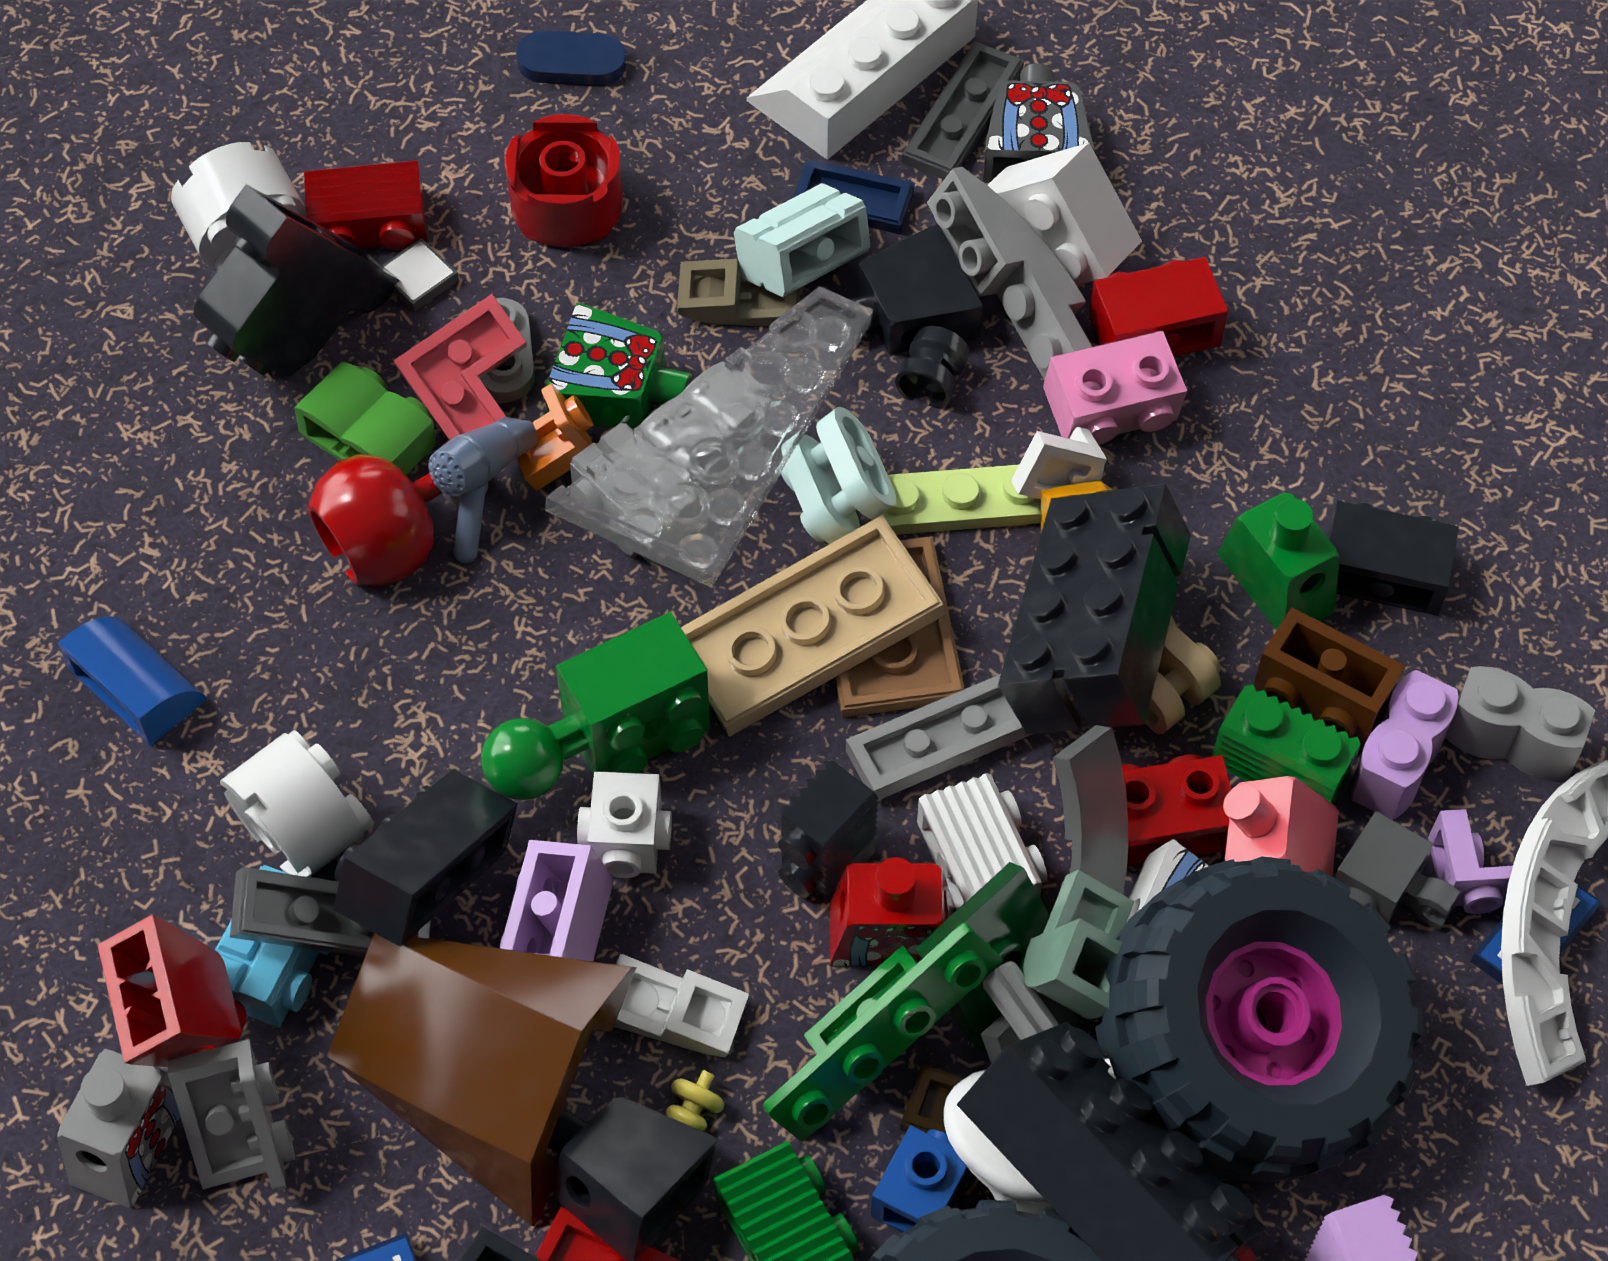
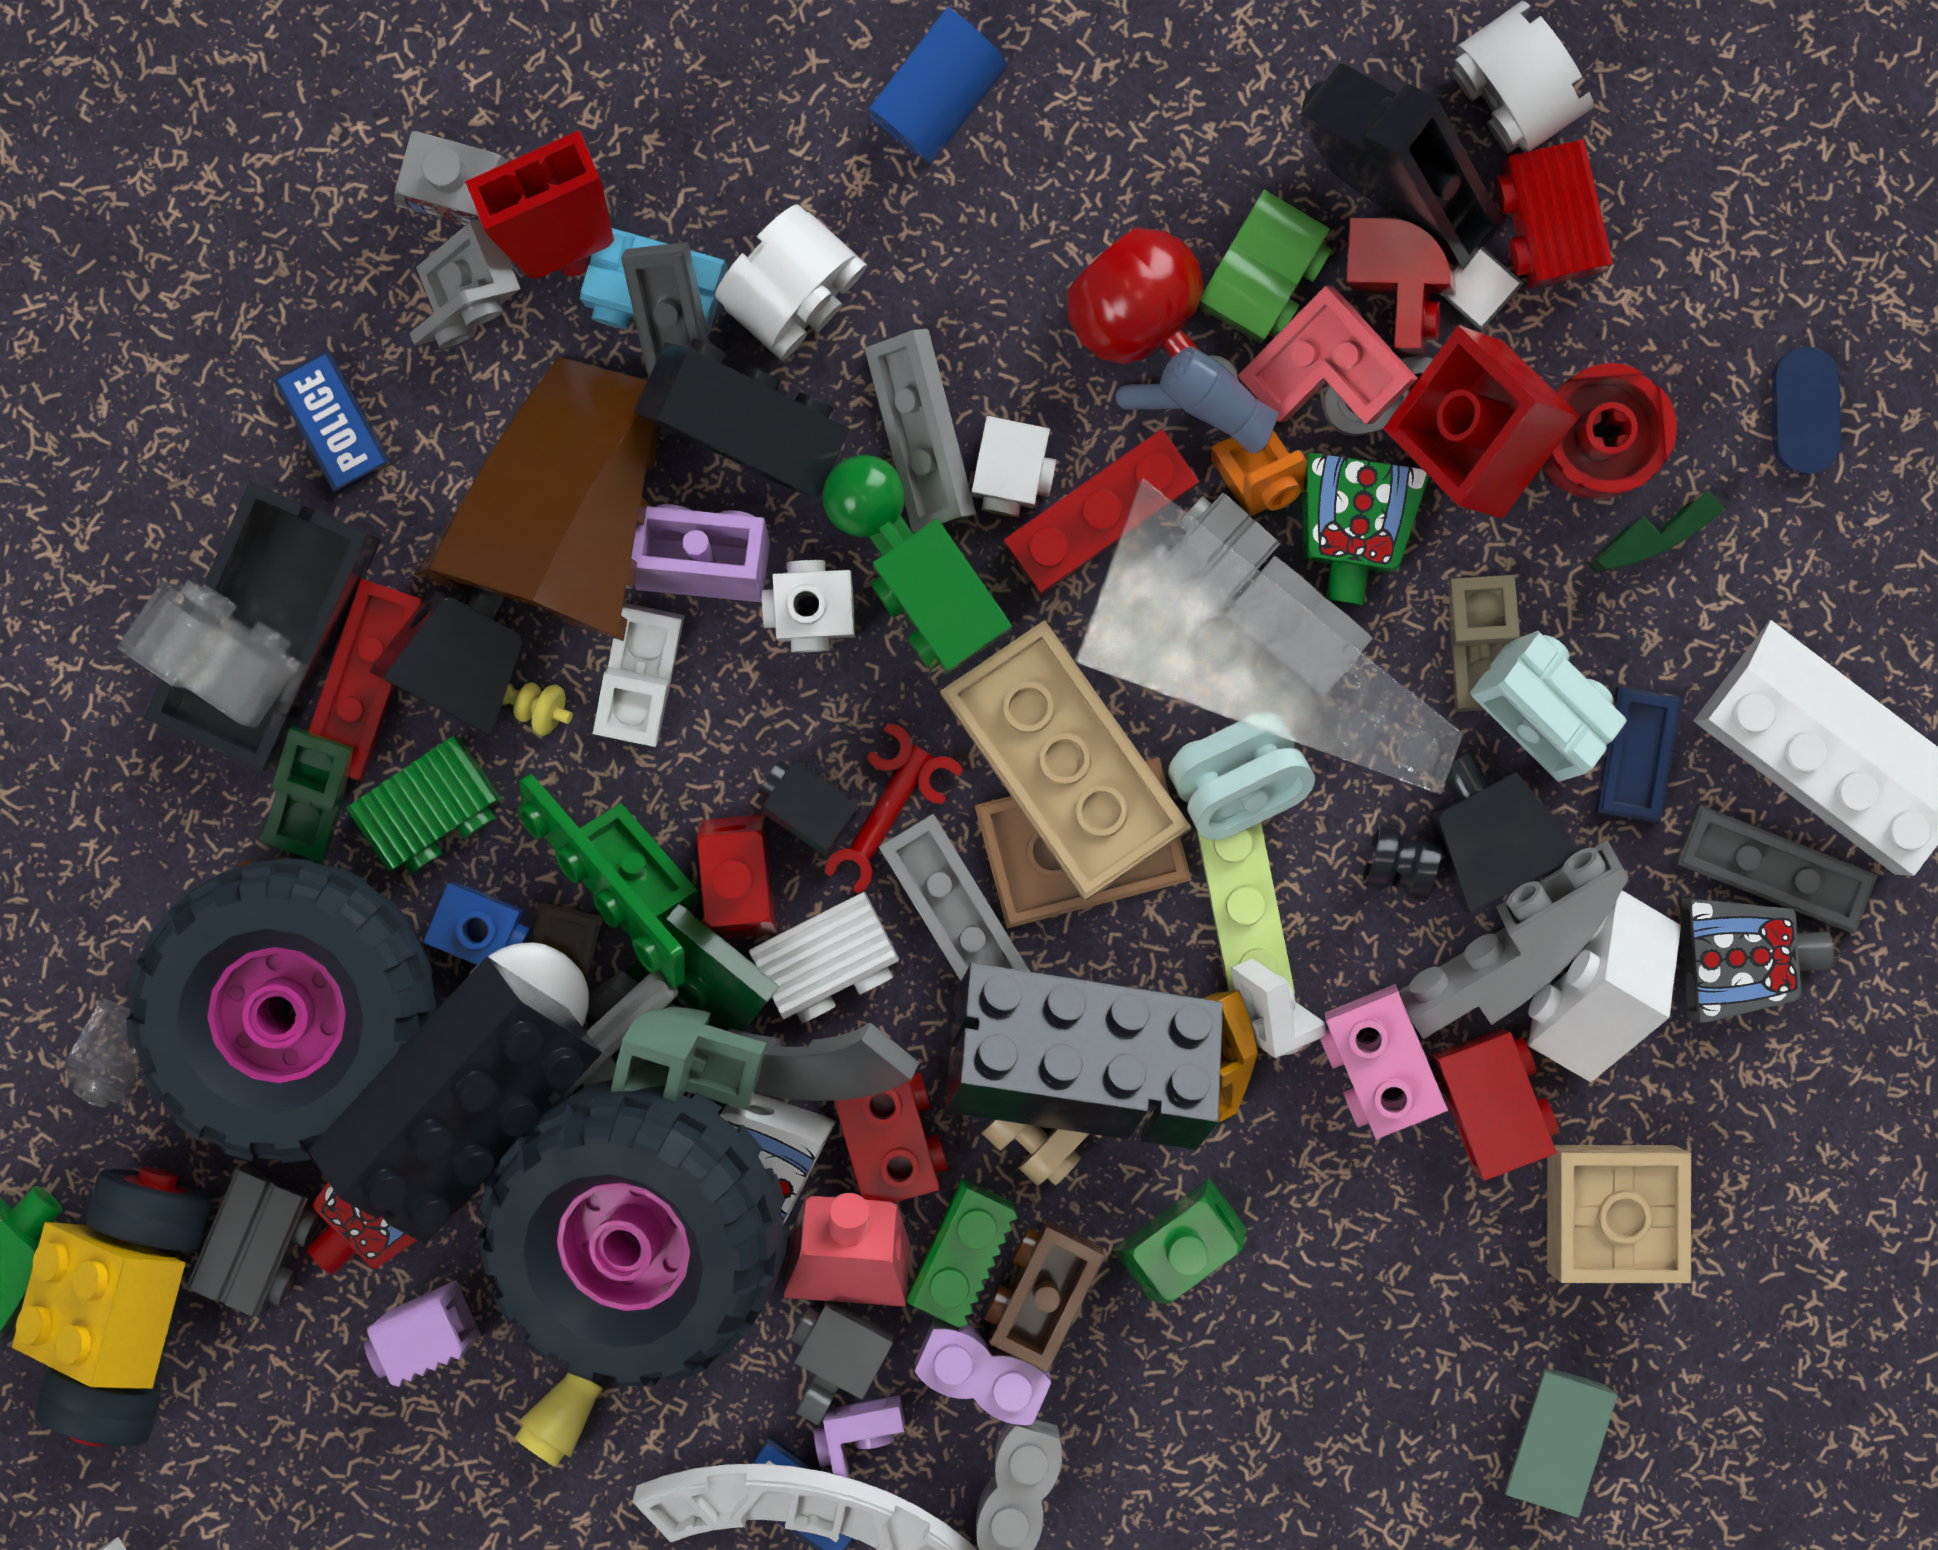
camera: 85 degrees right, 30 degrees up
(387, 308) = (1404, 260): none -> red brick
(456, 718) = (920, 429): none -> light grey plate
(513, 643) = (1012, 466): none -> white brick
(539, 249) = (1480, 422): none -> red brick
(570, 568) = (1095, 513): none -> red brick
(661, 156) = (1642, 540): none -> dark green slope
(798, 763) = (911, 768): none -> red bar
(1263, 227) = (1619, 1214): none -> tan container
(1392, 556) = (1209, 1356): black brick -> none
(1457, 1157) = (558, 1419): none -> light yellow cone
(1468, 288) = (1561, 1442): none -> sand green brick

